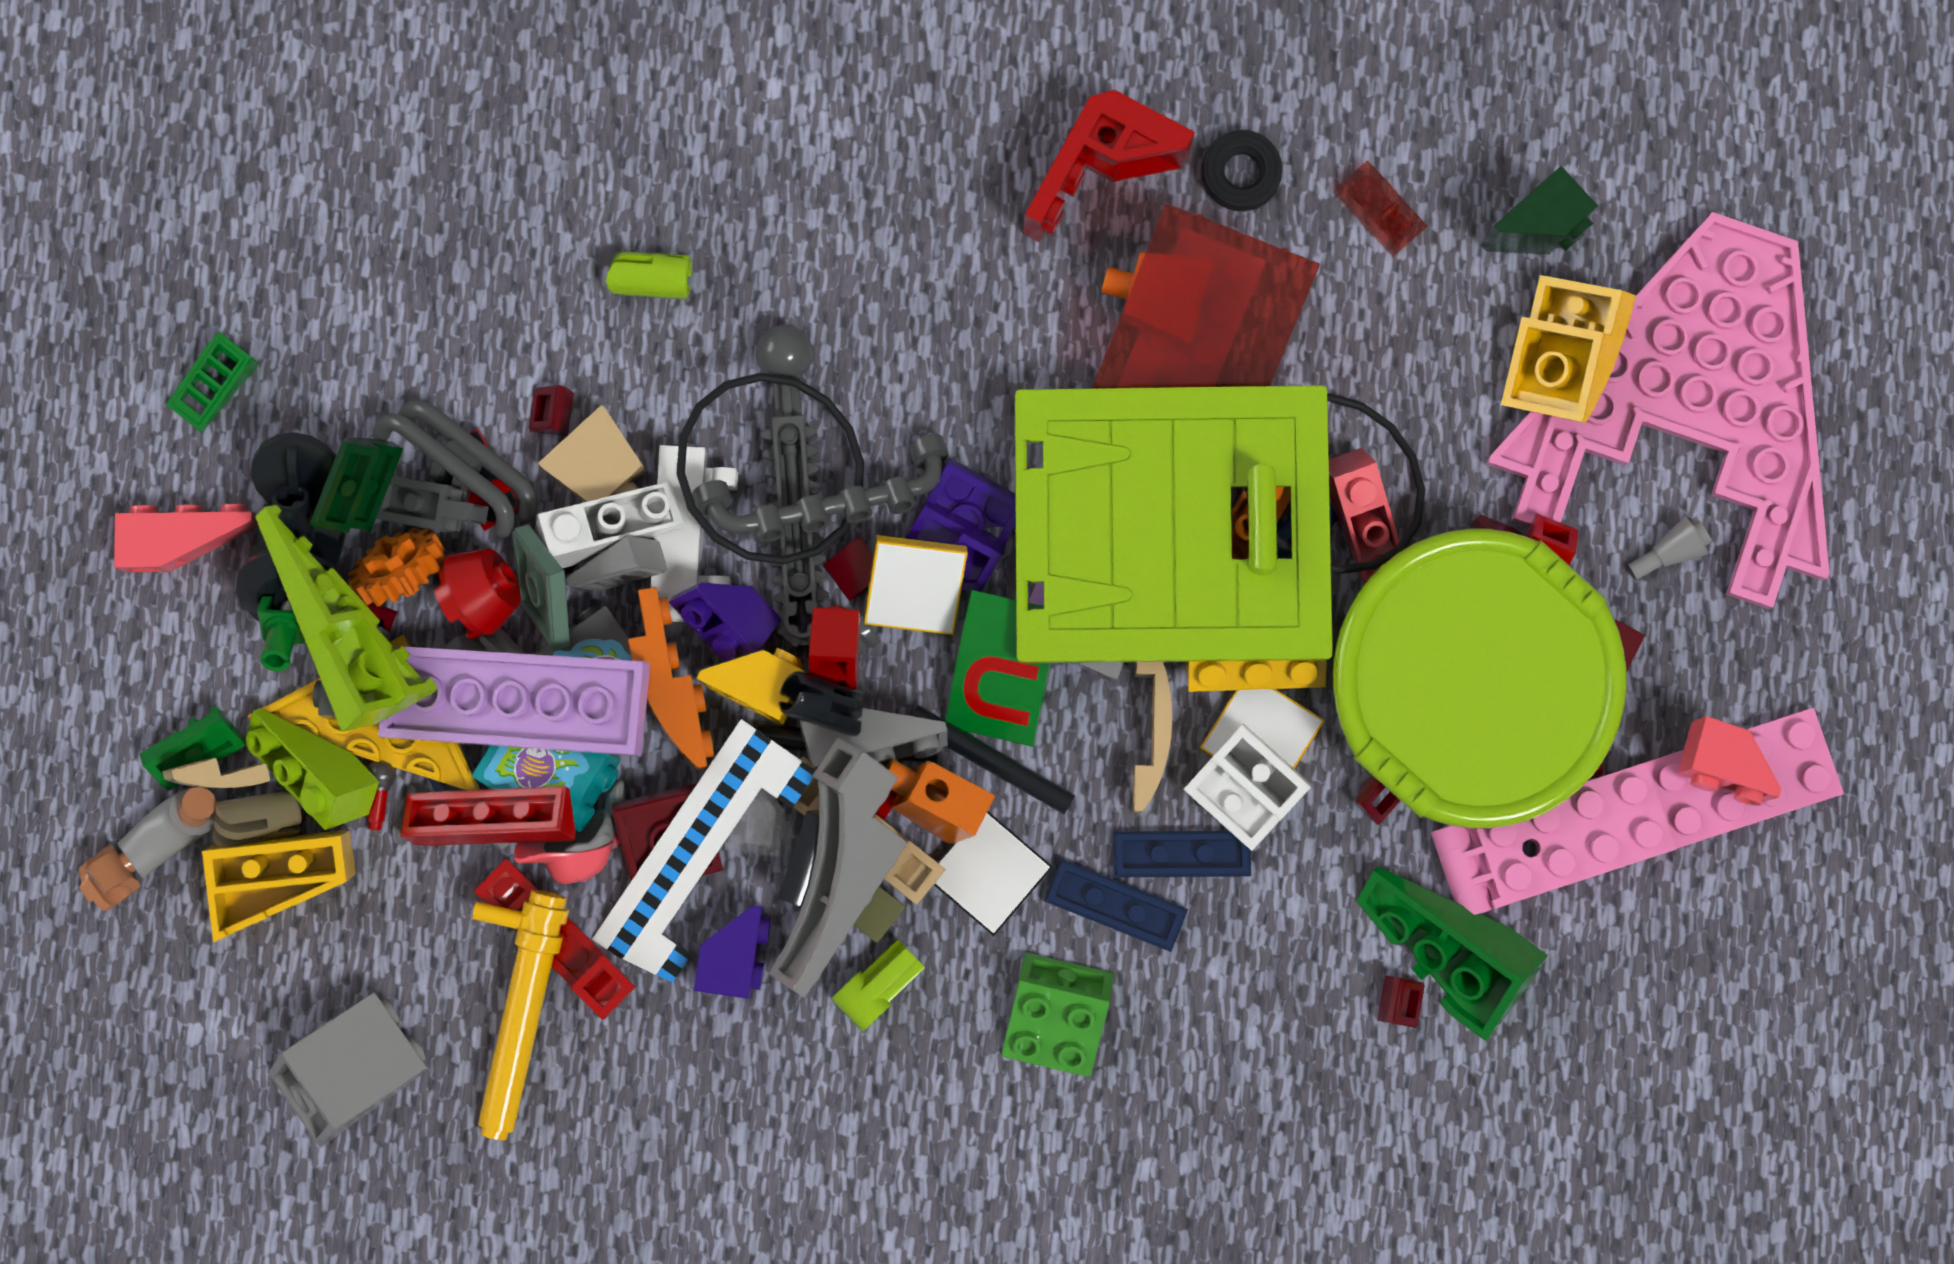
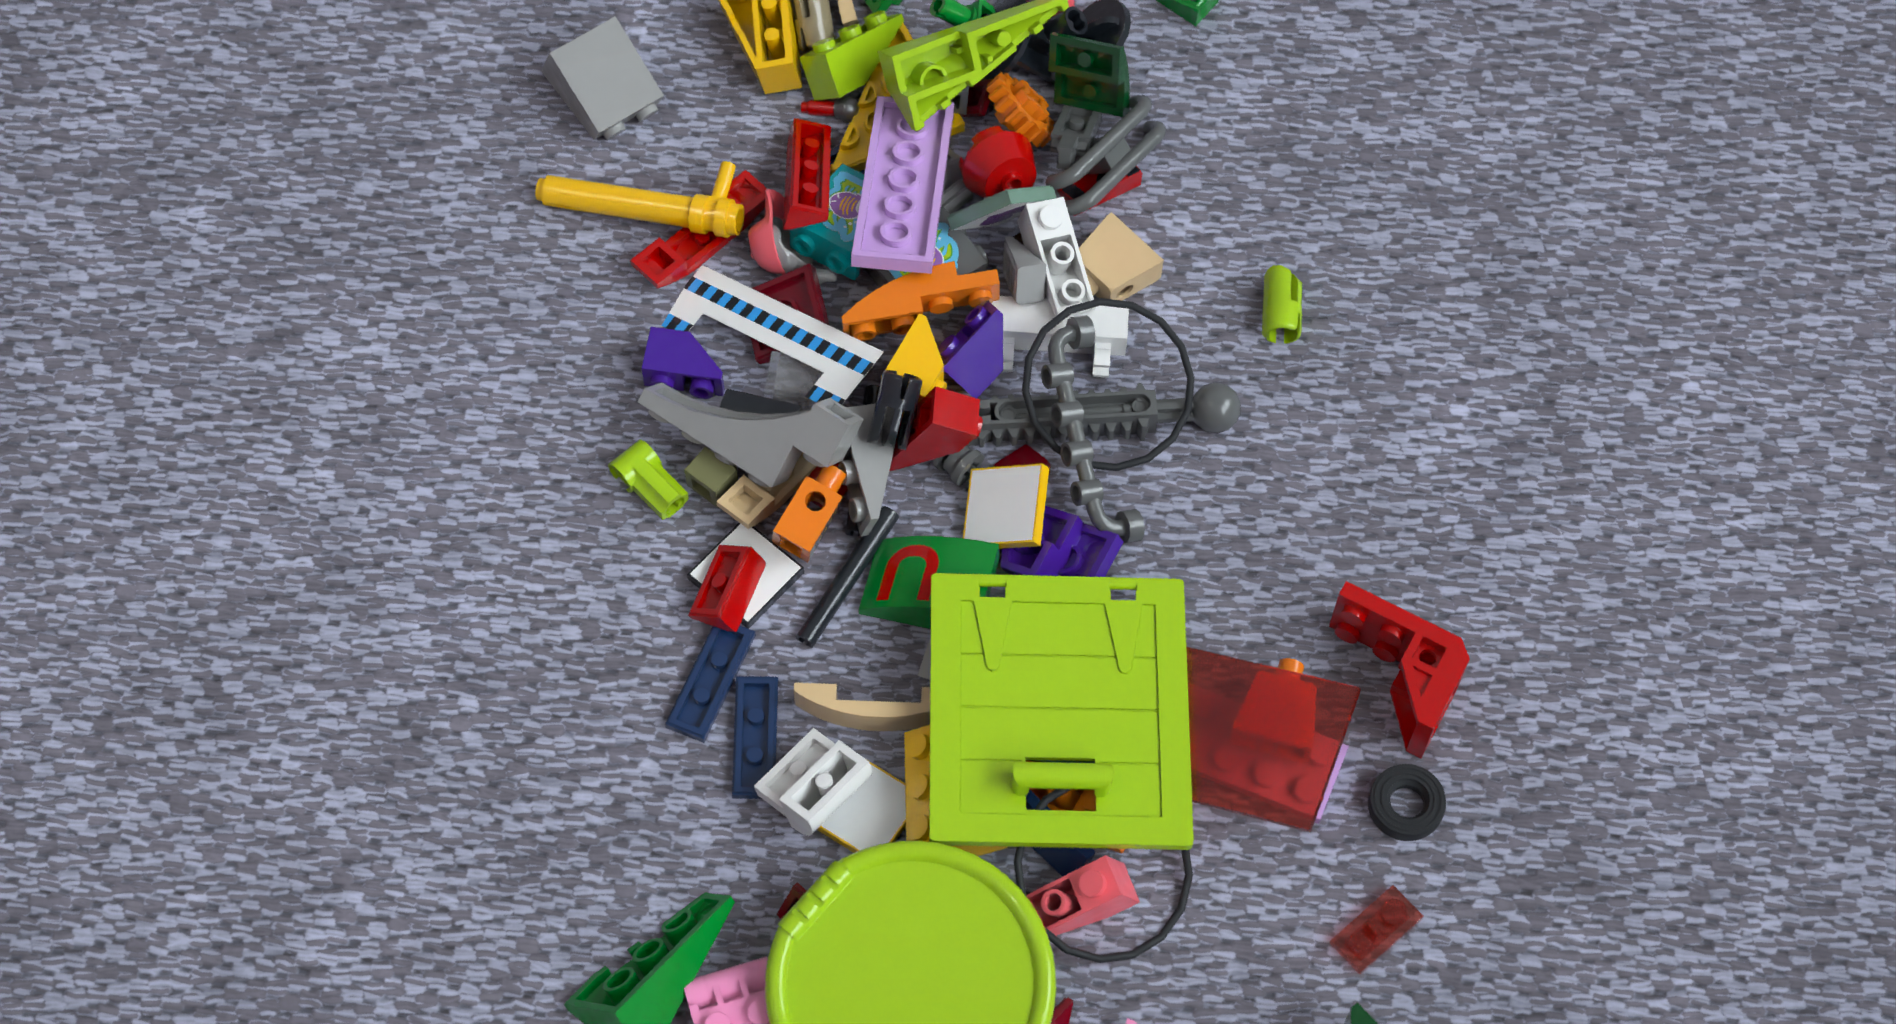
camera: 90 degrees right, 20 degrees down
(551, 410) = (1161, 235): dark red slope -> none
(1012, 890) = (728, 587): none -> red slope
(1058, 1014) = (616, 623): bright green bracket -> none
(1401, 1001) = (606, 928): dark red slope -> none

